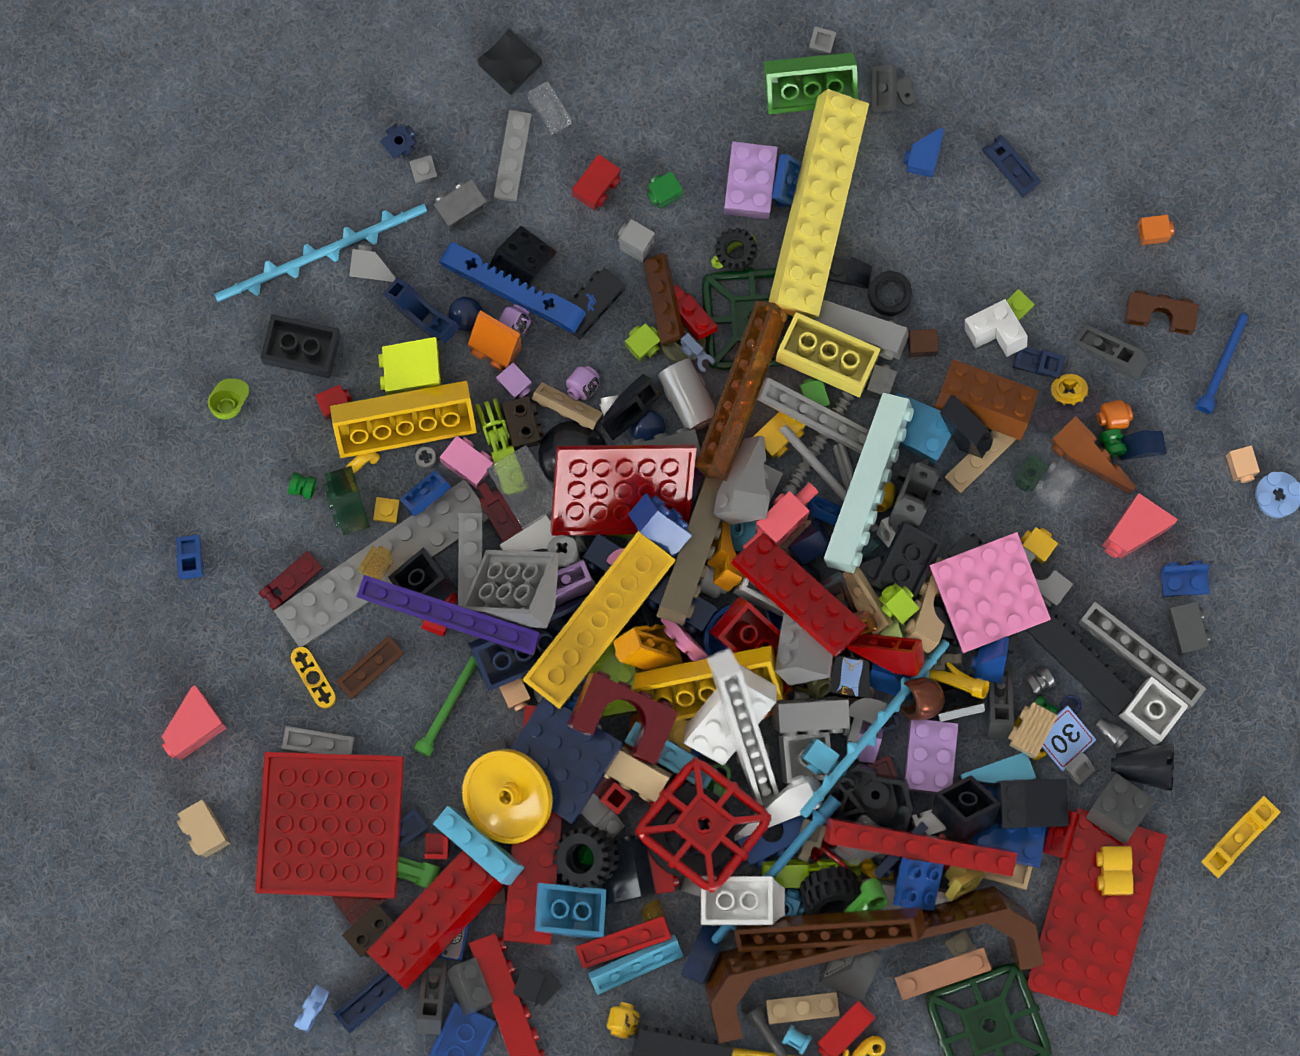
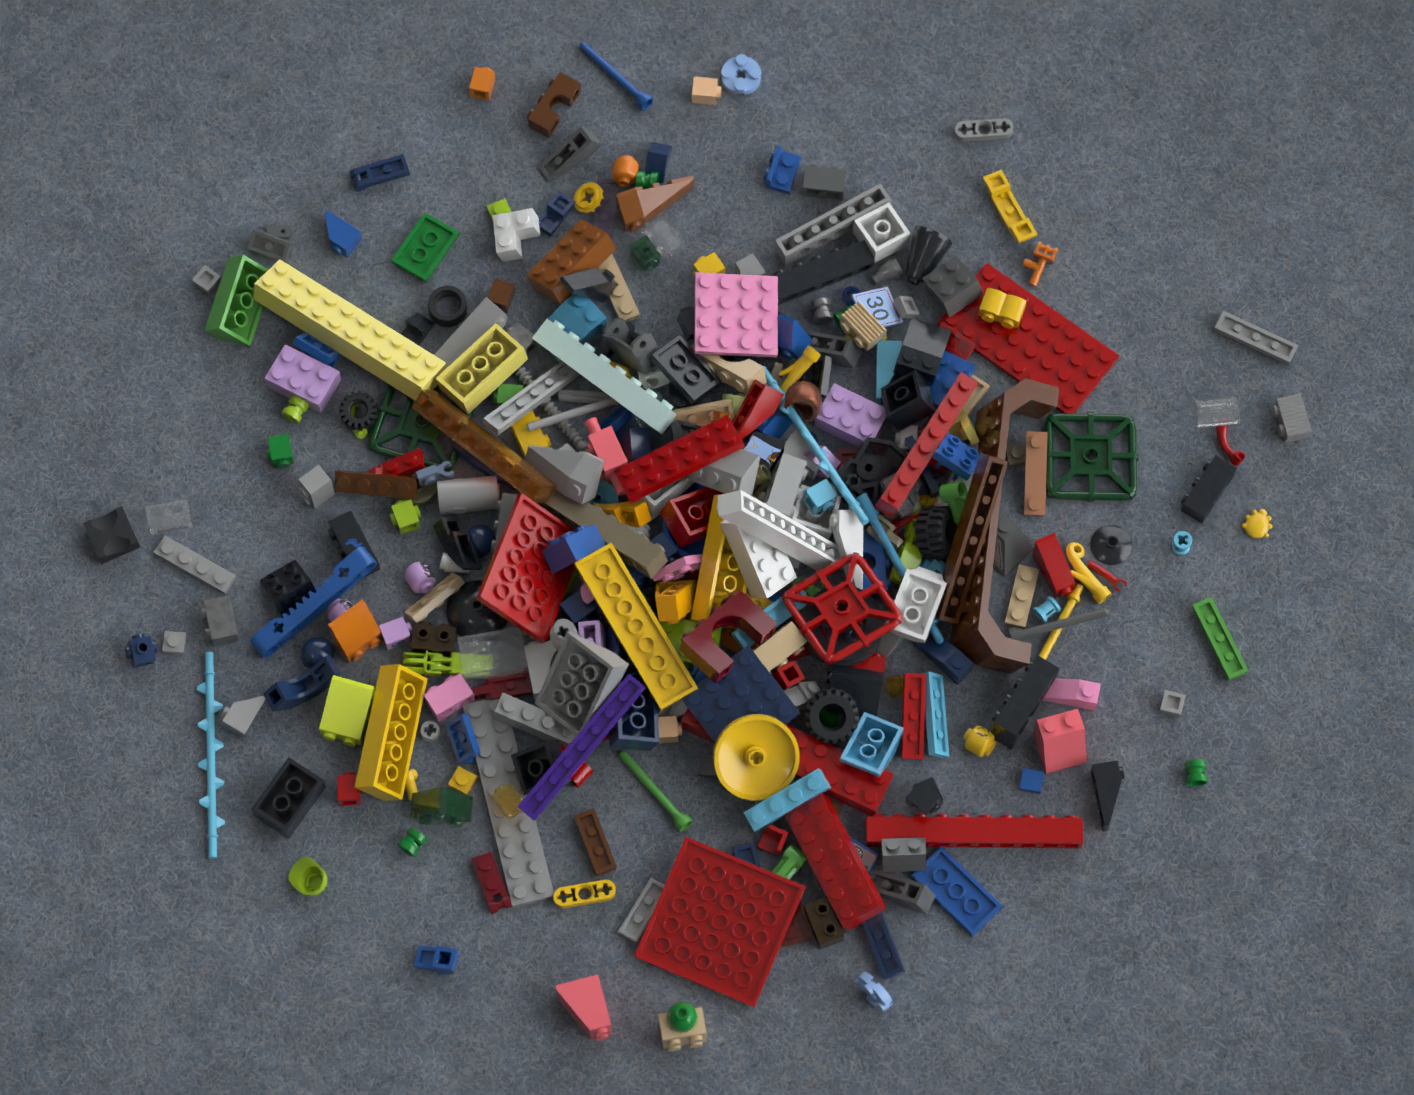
camera: 65 degrees left, 10 degrees down
(206, 824) = (682, 1017): none -> green brick
(596, 182) = (249, 503): red brick -> none
(715, 186) = (295, 409): none -> lime wheel
(898, 603) = (717, 386): lime brick -> none
(946, 245) = (425, 247): none -> green plate
(1137, 526) = (724, 187): coral slope -> none
(1185, 893) = (1043, 258): none -> orange arm

